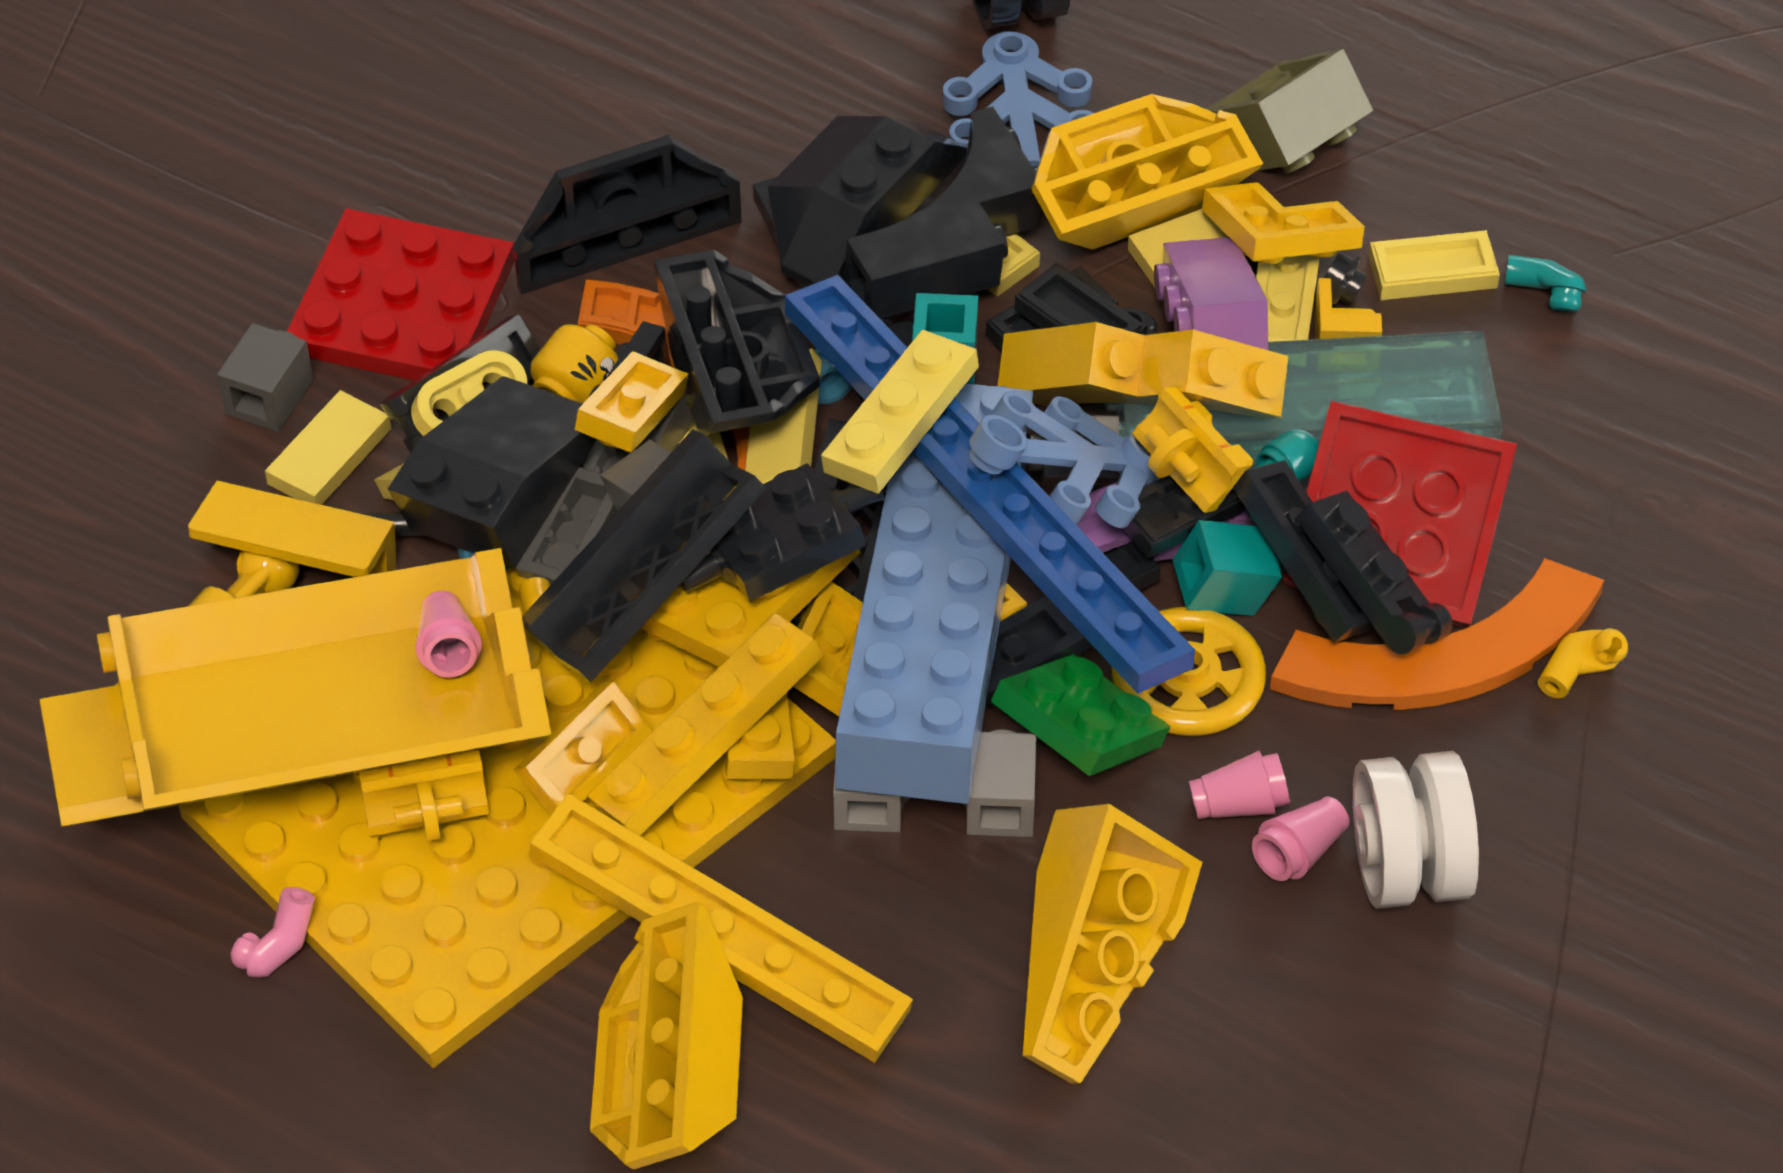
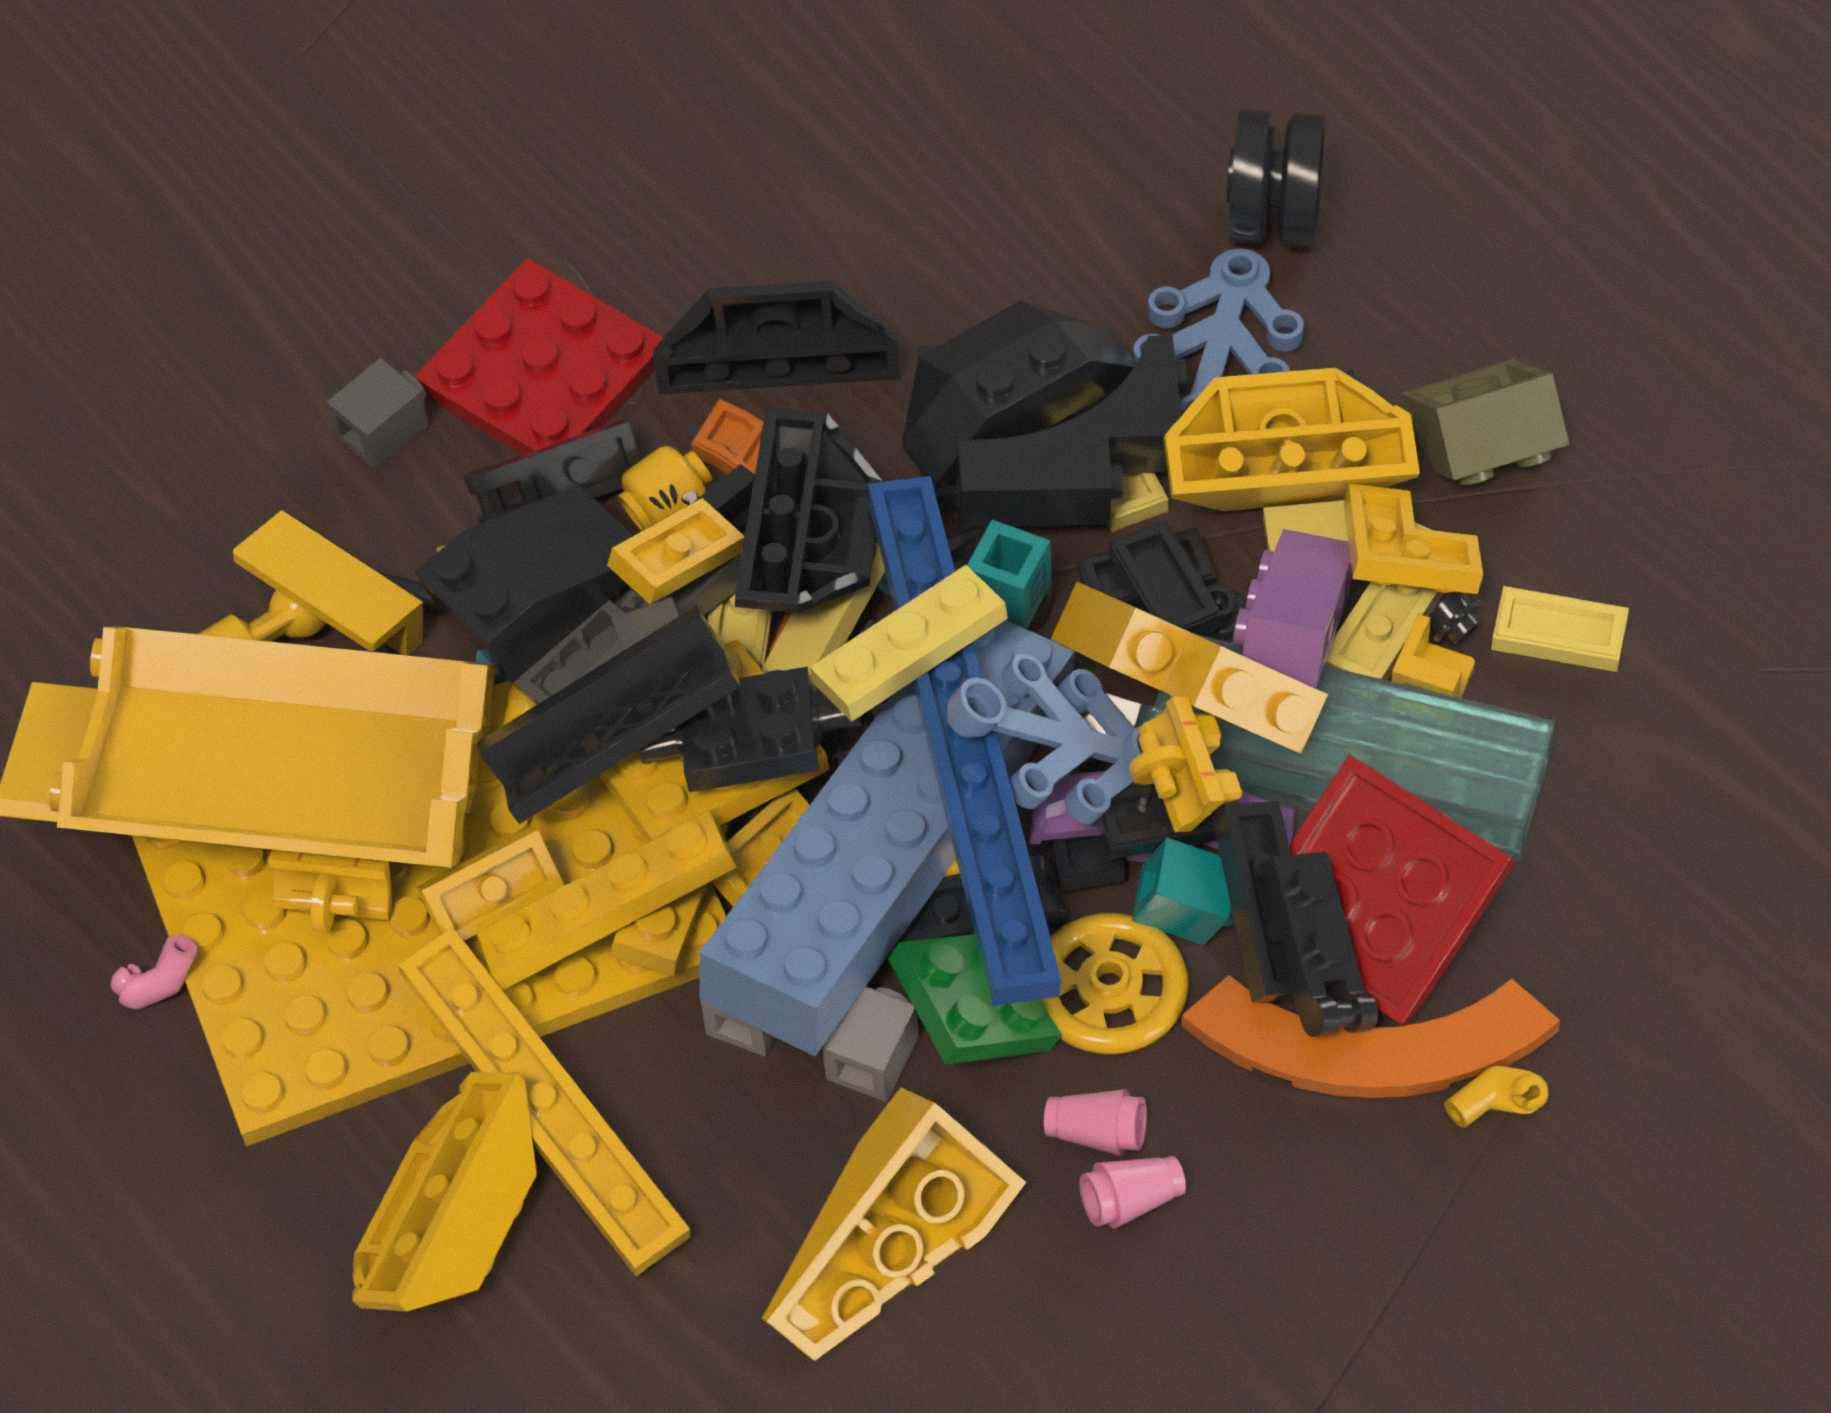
camera: 25 degrees right, 5 degrees up
(328, 449) = (407, 504): light yellow tile -> none
(446, 636) = (411, 734): bright pink cone -> none
(460, 385) = (542, 480): light yellow plate -> none
(1295, 447) = (1297, 794): teal cylinder -> none
(1415, 829) = (1216, 1218): white wheel -> none
(1548, 275) = (1670, 676): teal arm -> none

